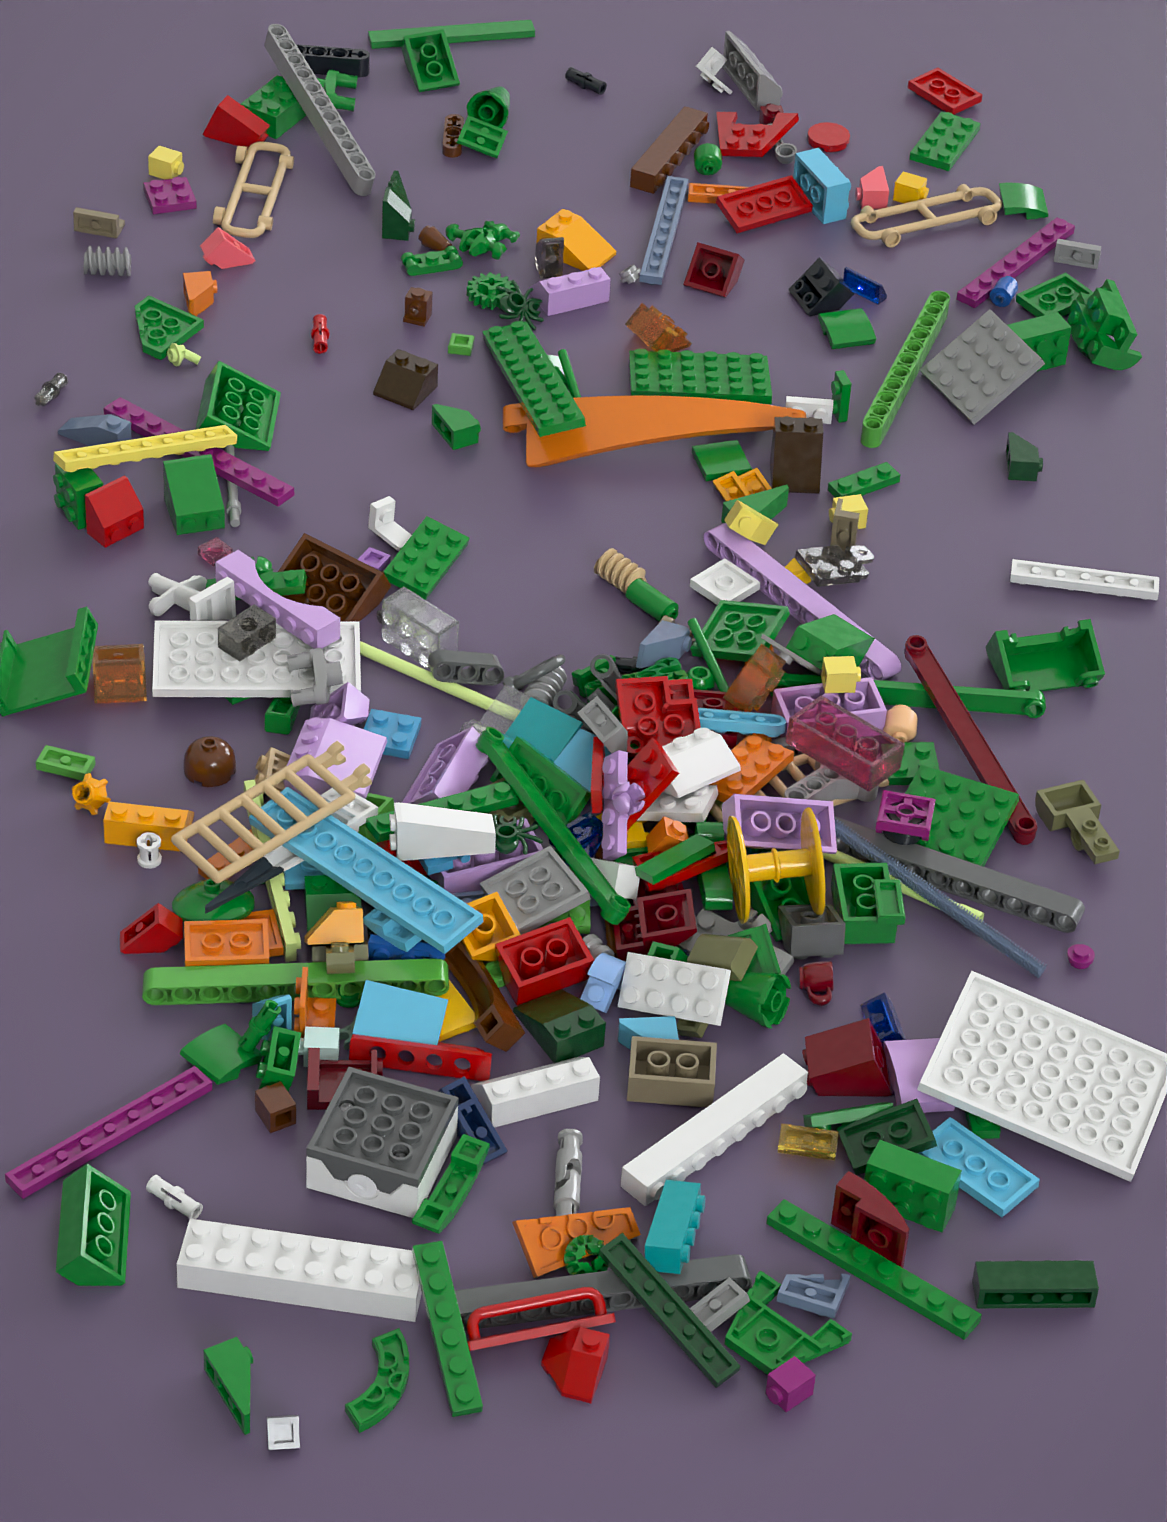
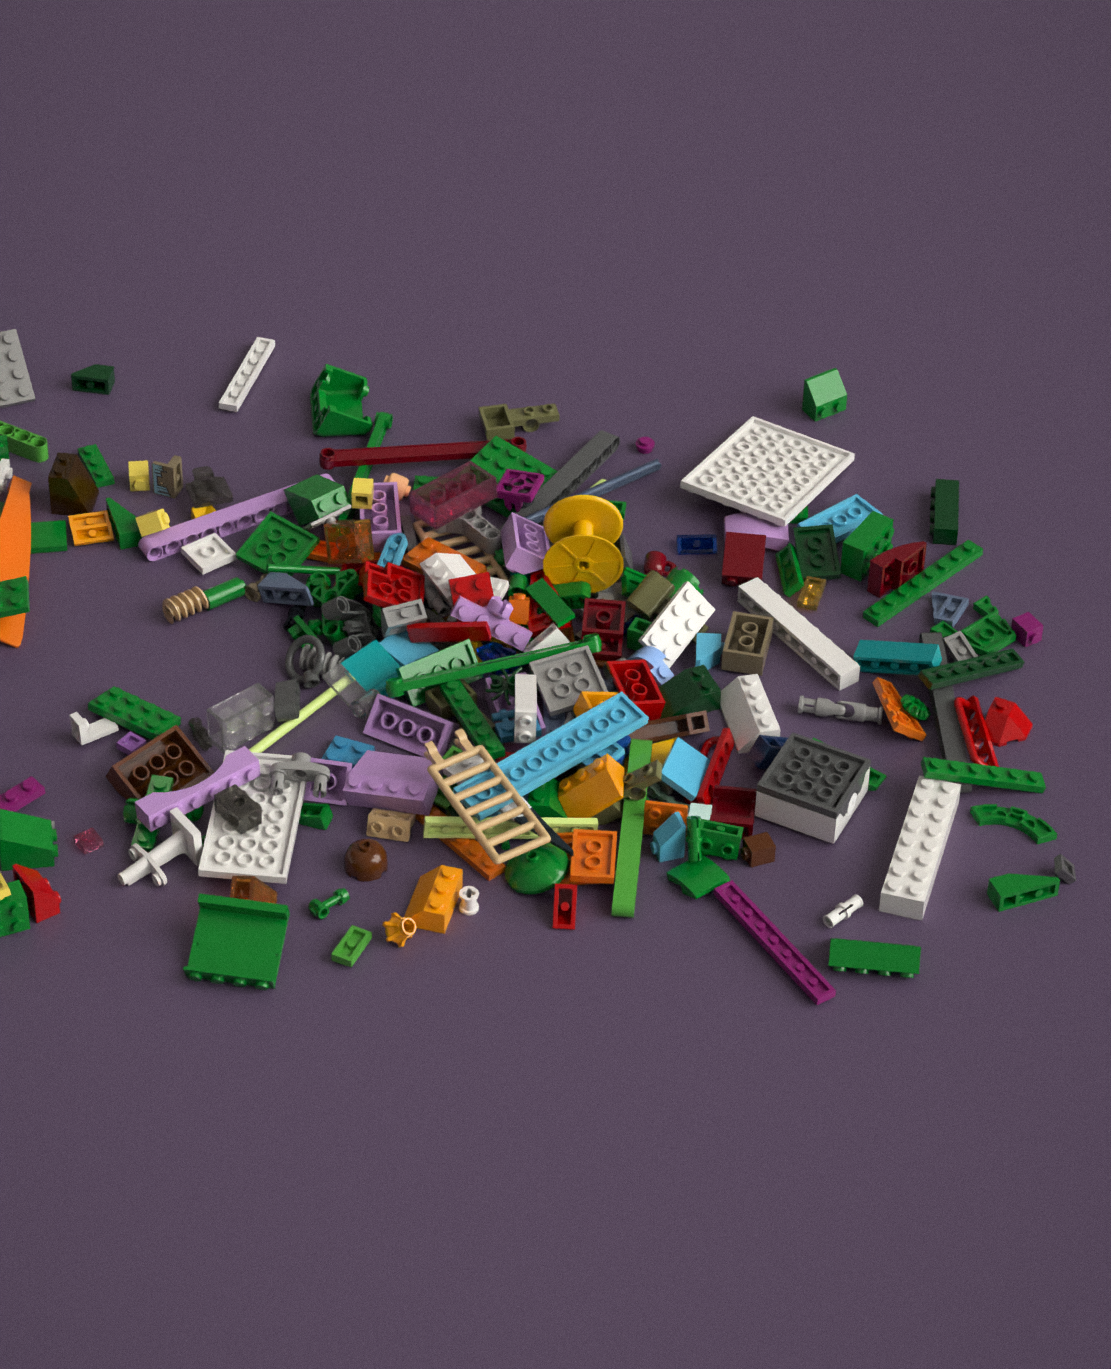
camera: 80 degrees left, 0 degrees up
(129, 732) = (321, 909): none -> green bar

